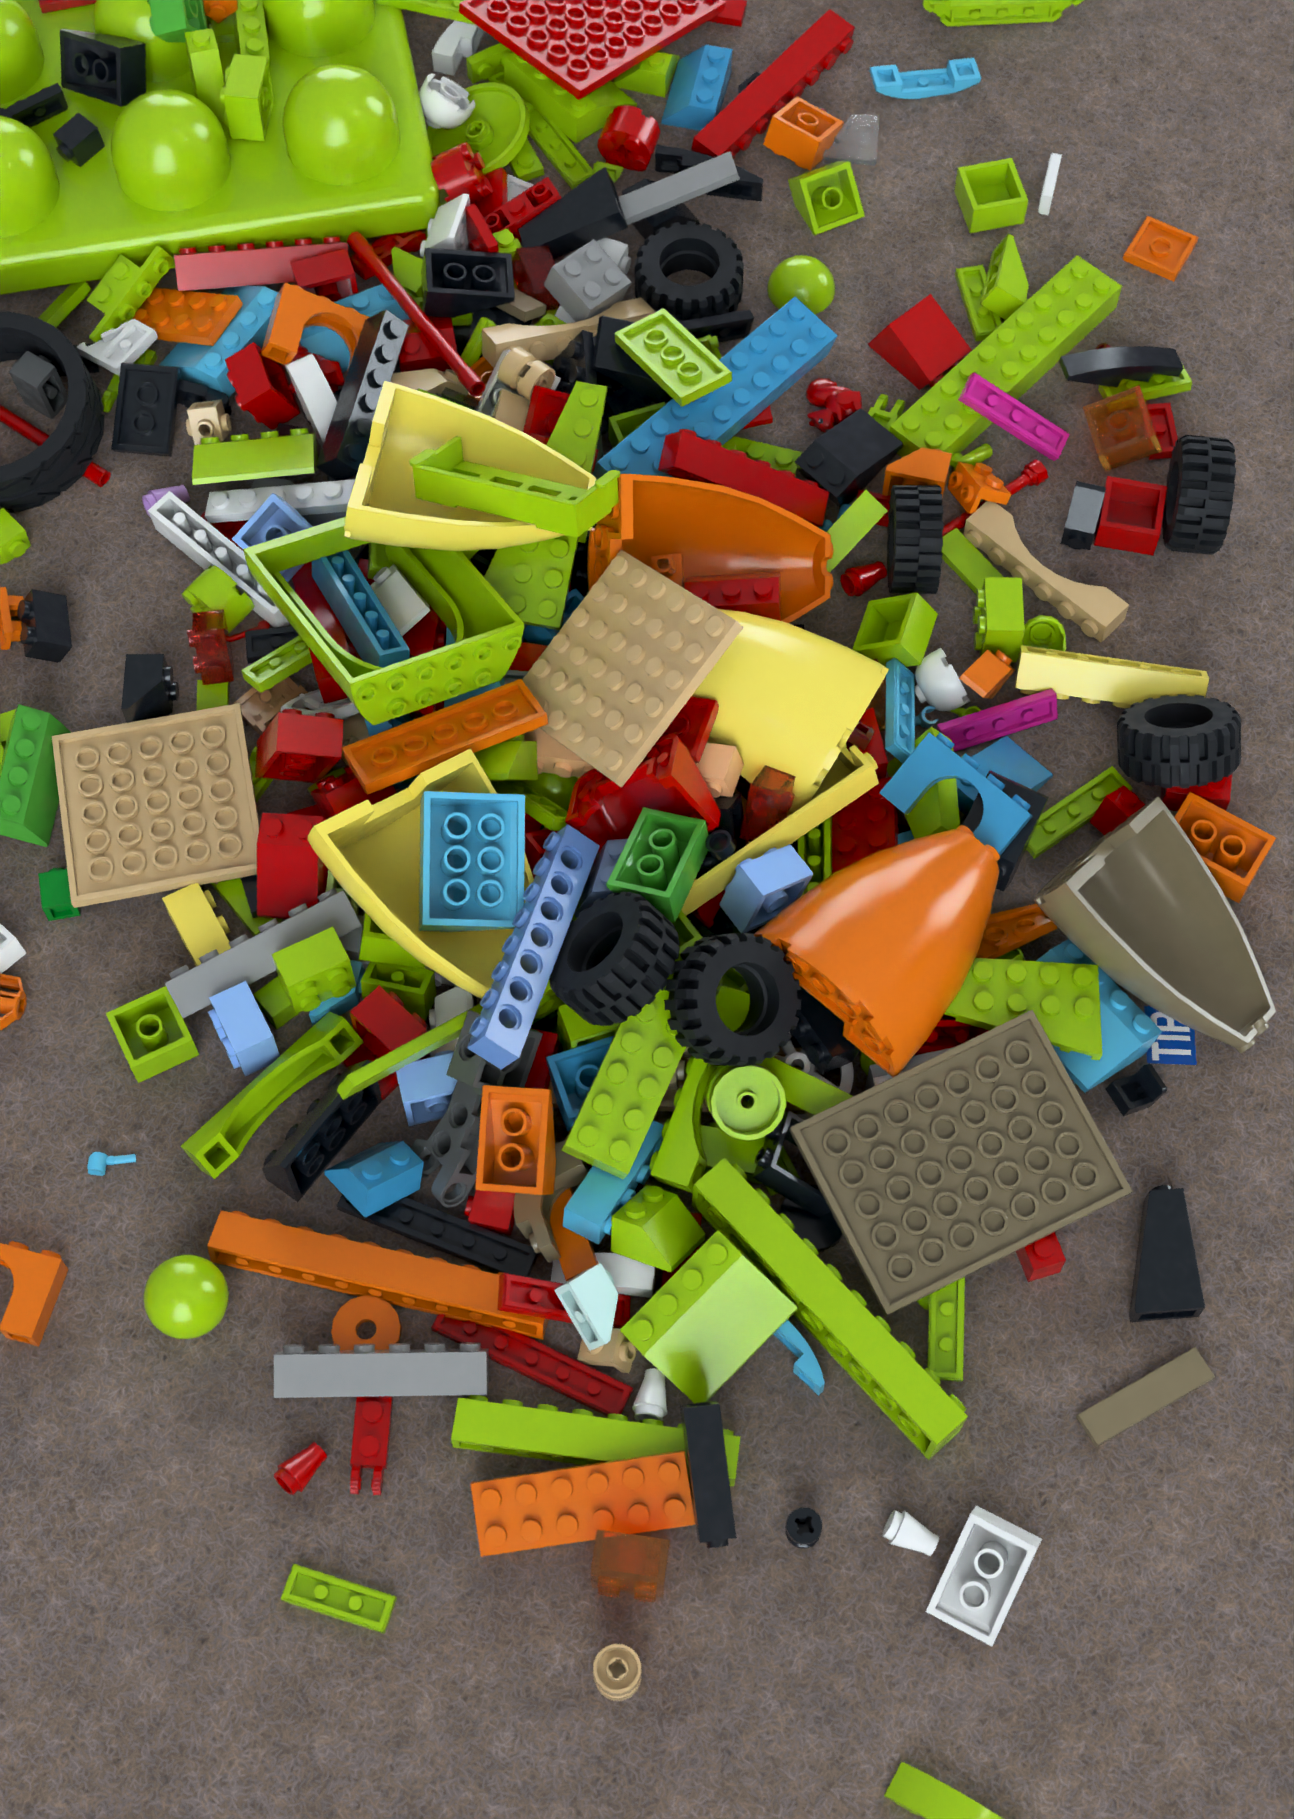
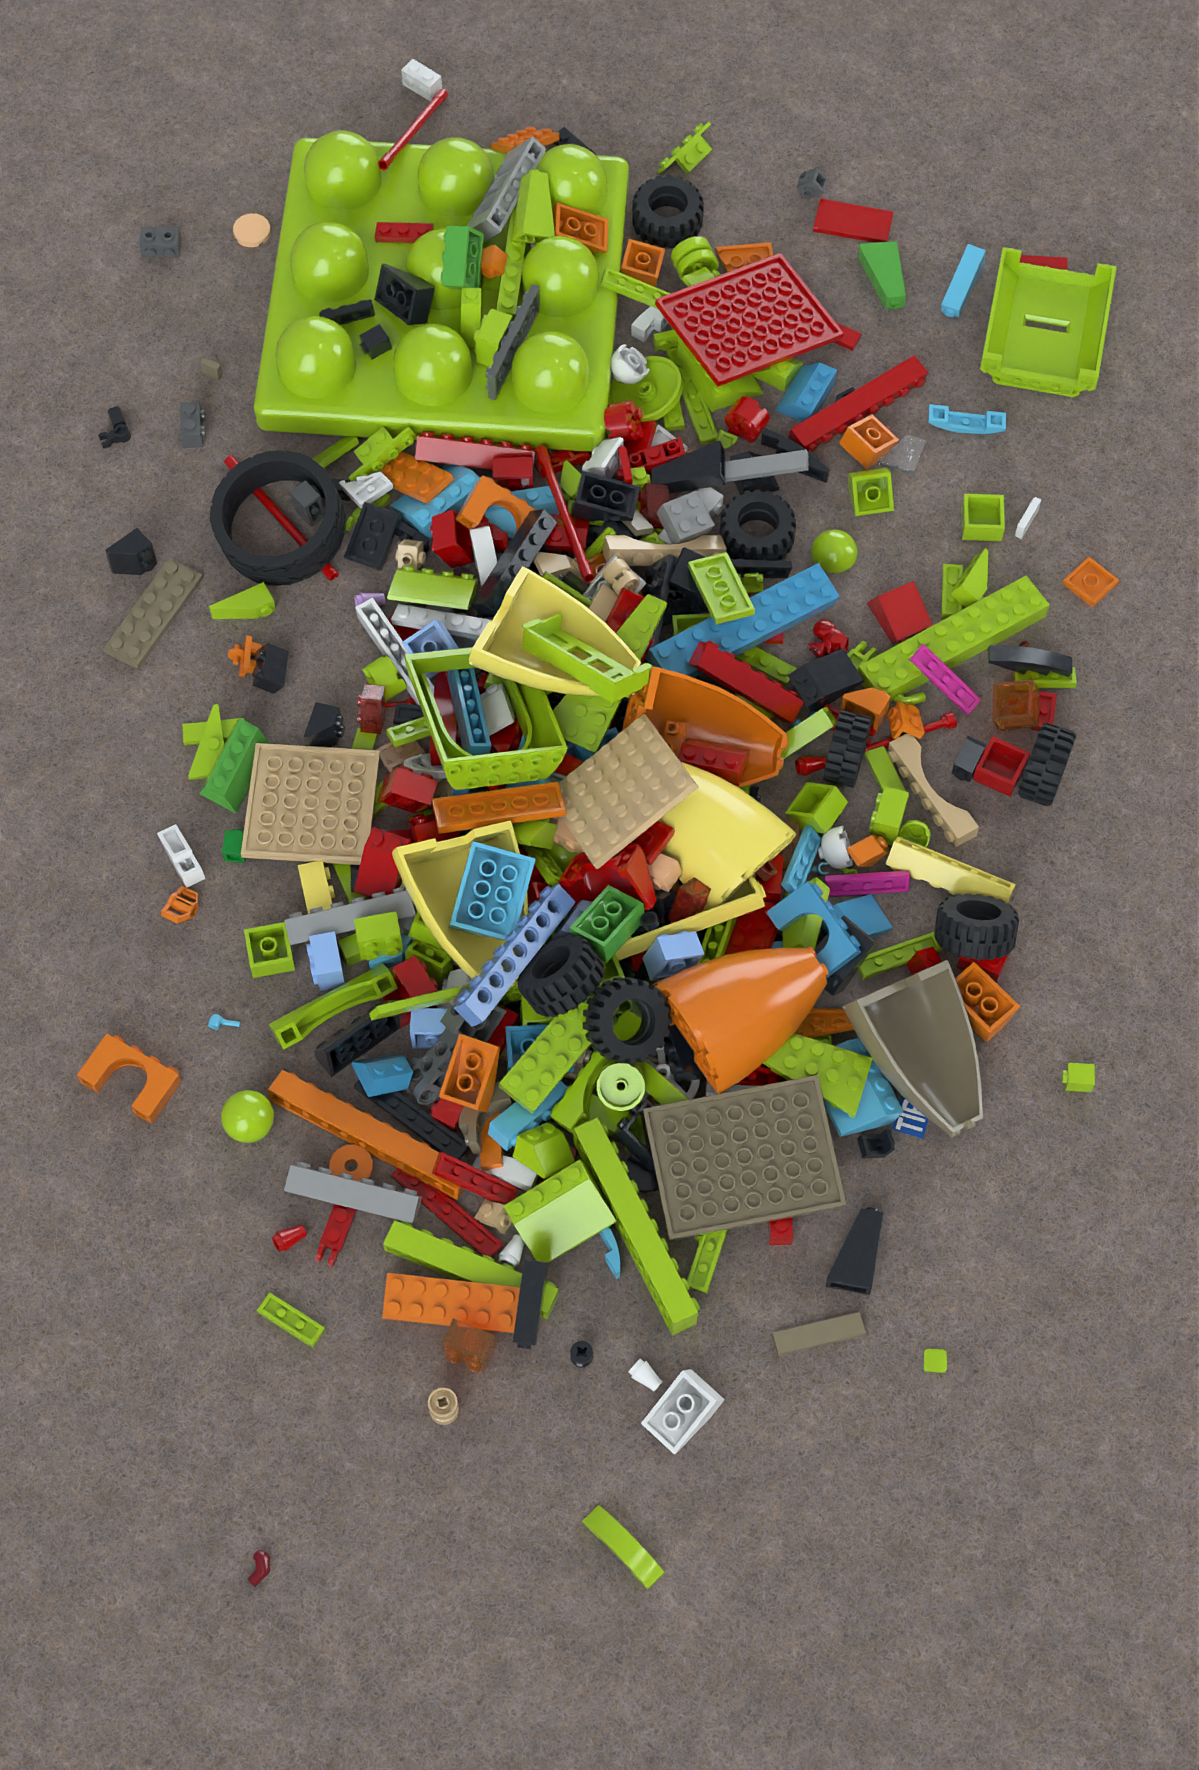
camera: 15 degrees right, 0 degrees up
(280, 82) = (517, 333): none -> dark grey plate
(591, 1304) = (490, 1185): light aqua slope -> none

